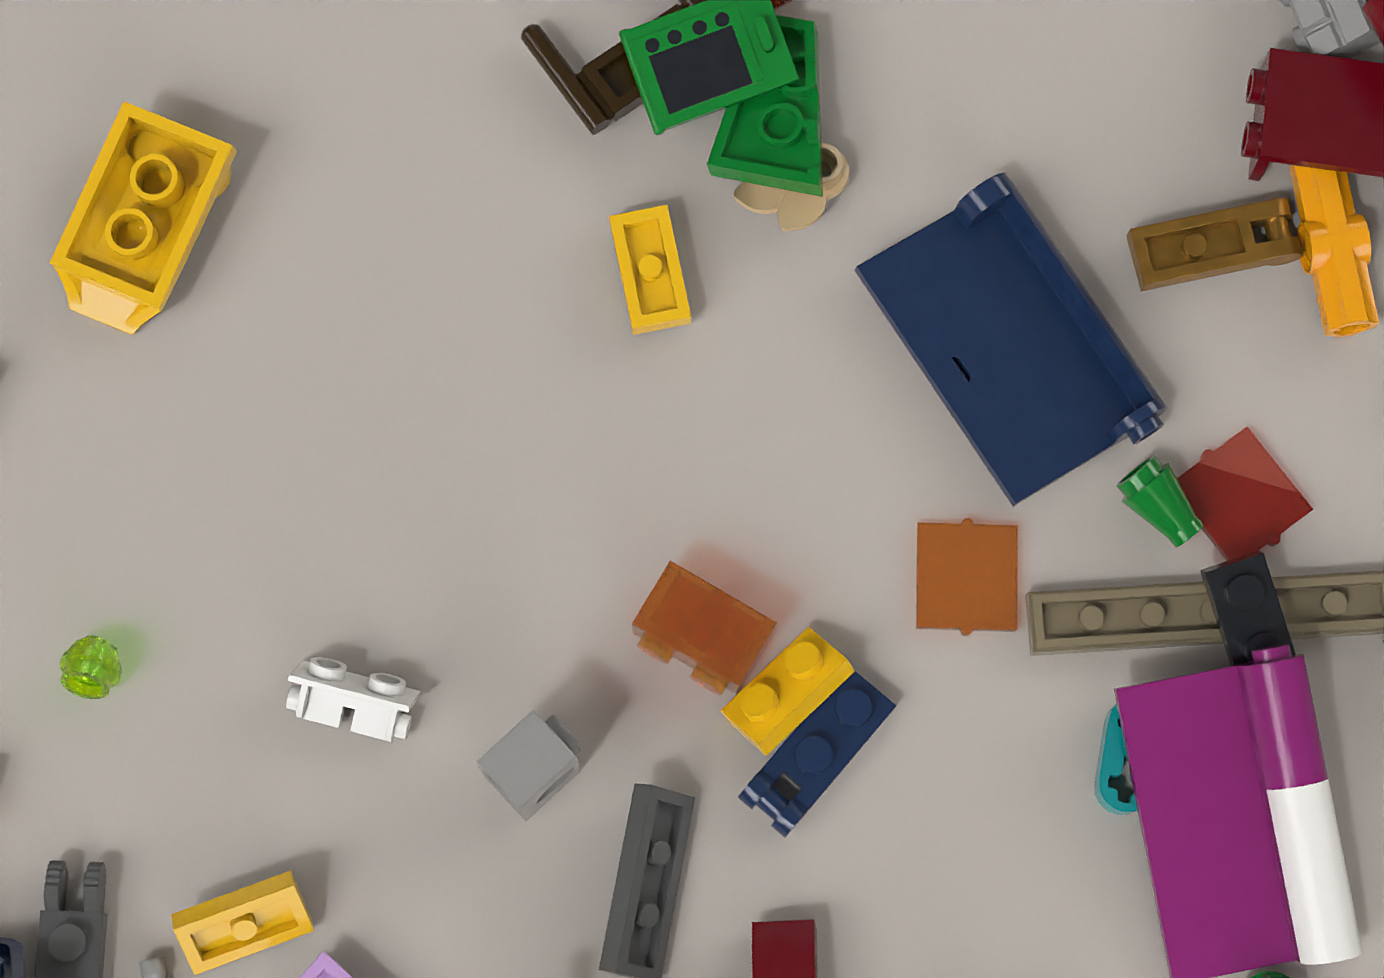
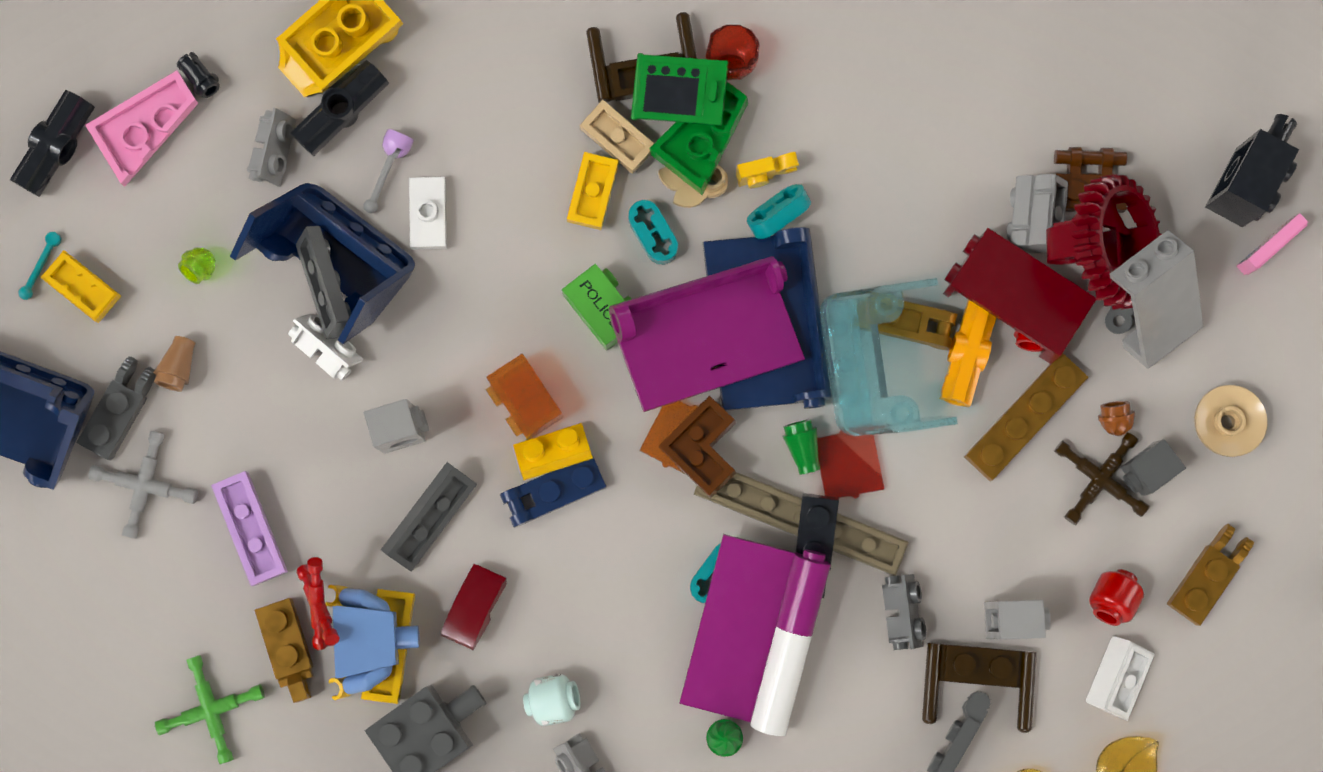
camera: 25 degrees right, 5 degrees up
(117, 406) = (276, 136): none -> light grey hinge
(131, 839) = (175, 366): none -> medium nougat cone
(186, 357) = (356, 90): none -> black piece
(242, 922) = (211, 436): yellow plate -> none
(297, 539) = (367, 261): none -> dark blue windscreen
(307, 598) = (323, 281): none -> dark grey plate
(313, 341) = (395, 146): none -> hinge
(412, 420) = (427, 213): none -> white plate
(646, 171) = (617, 136): none -> tan plate
(752, 434) = (591, 297): none -> bright green brick
(779, 278) = (660, 228): none -> teal beam
(888, 123) = (757, 172): none -> yellow plate
(906, 402) = (712, 321): none -> magenta door
(946, 169) = (778, 211): none -> teal beam
(1000, 585) = (692, 446): none -> reddish brown plate
(1187, 336) = (857, 366): none -> clear light blue windscreen

